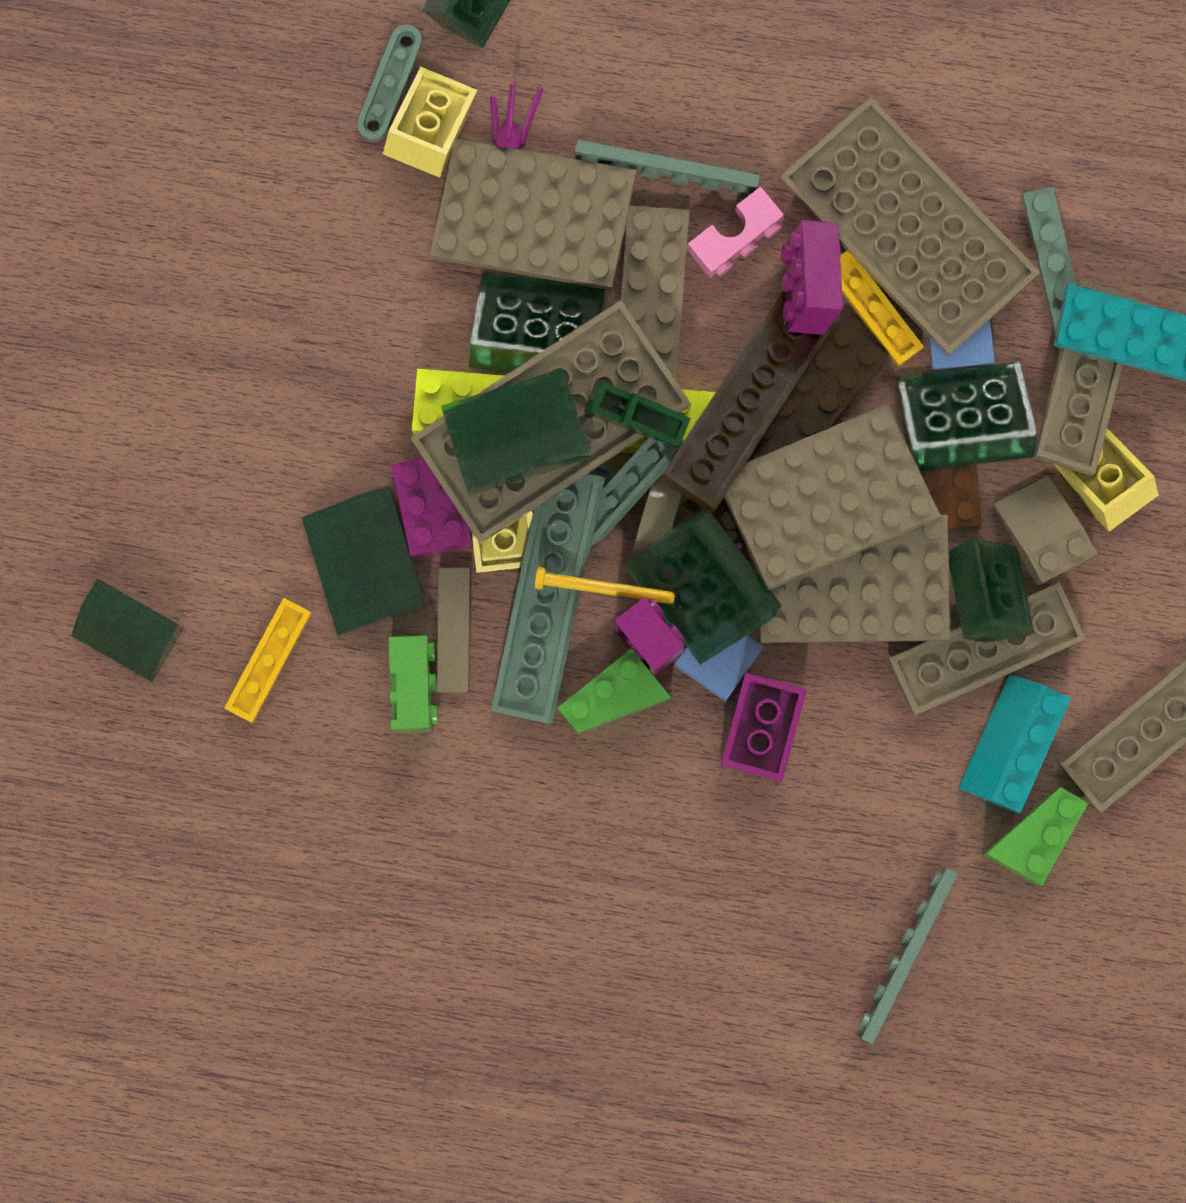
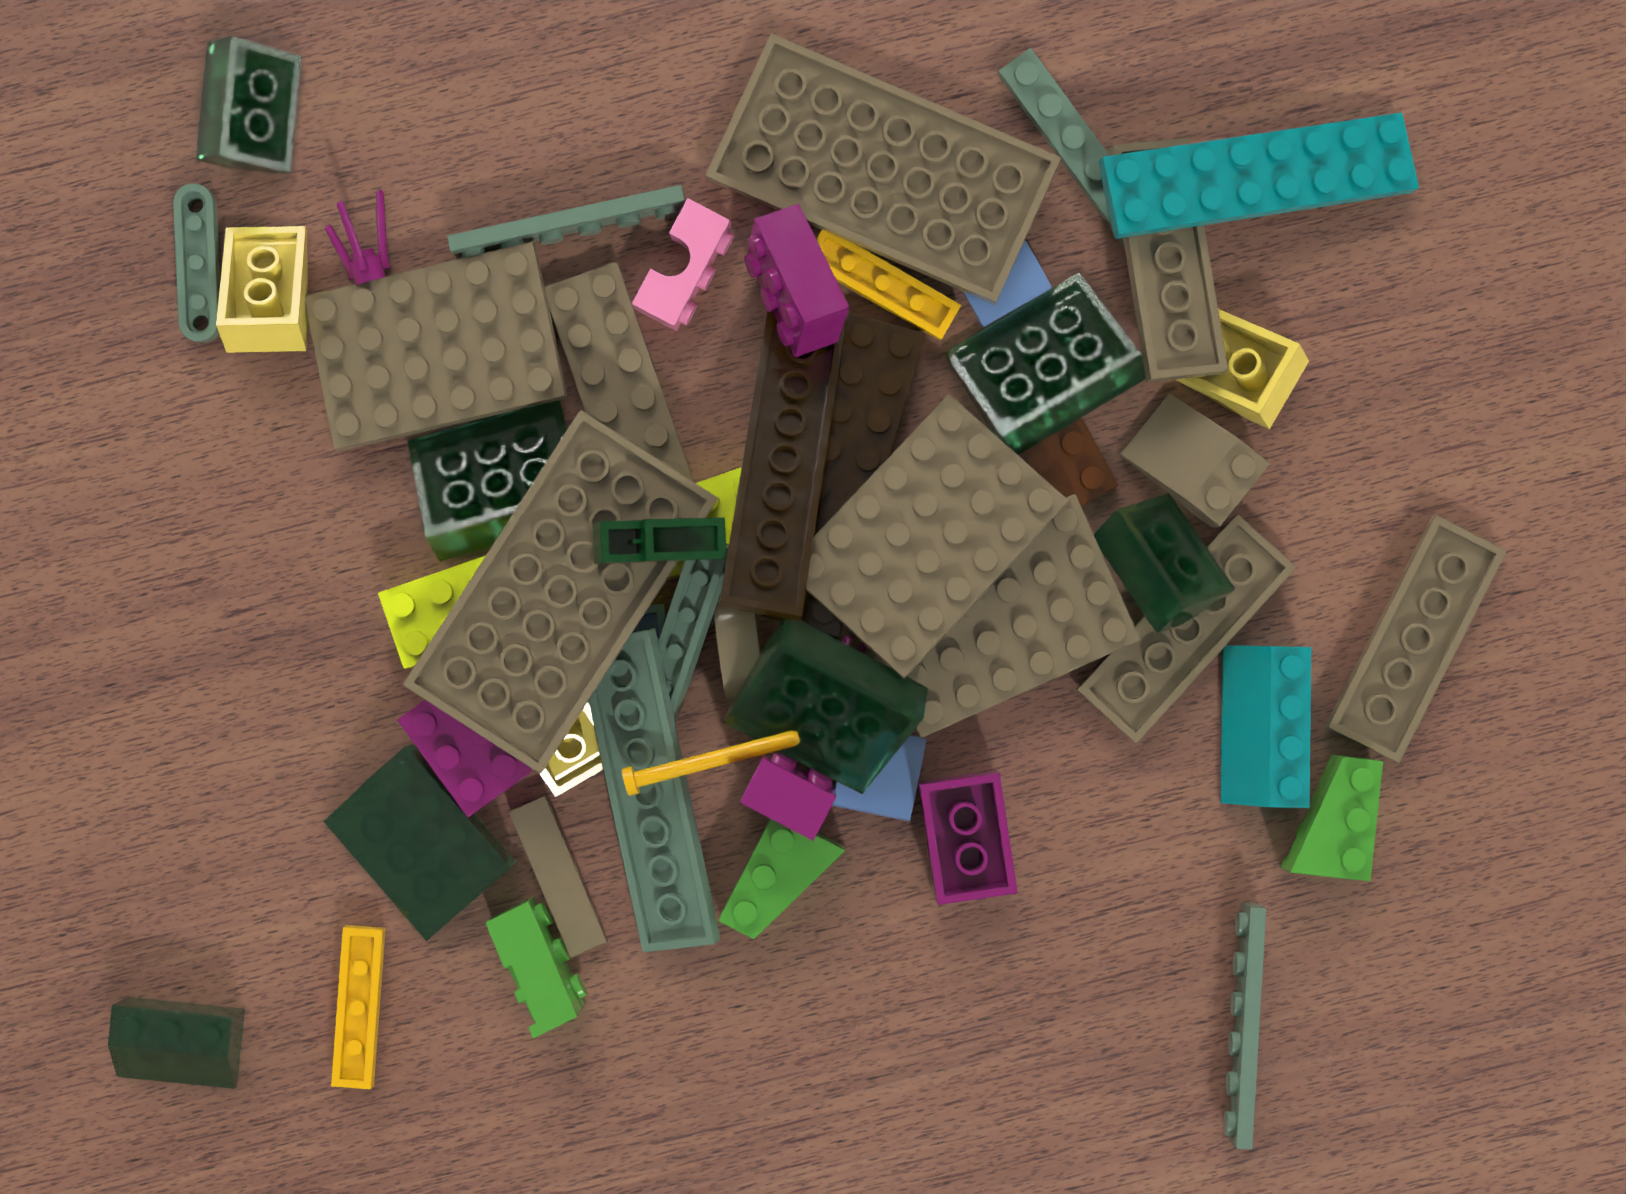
camera: 20 degrees left, 5 degrees up
(515, 432) = (522, 625): clear green slope -> none

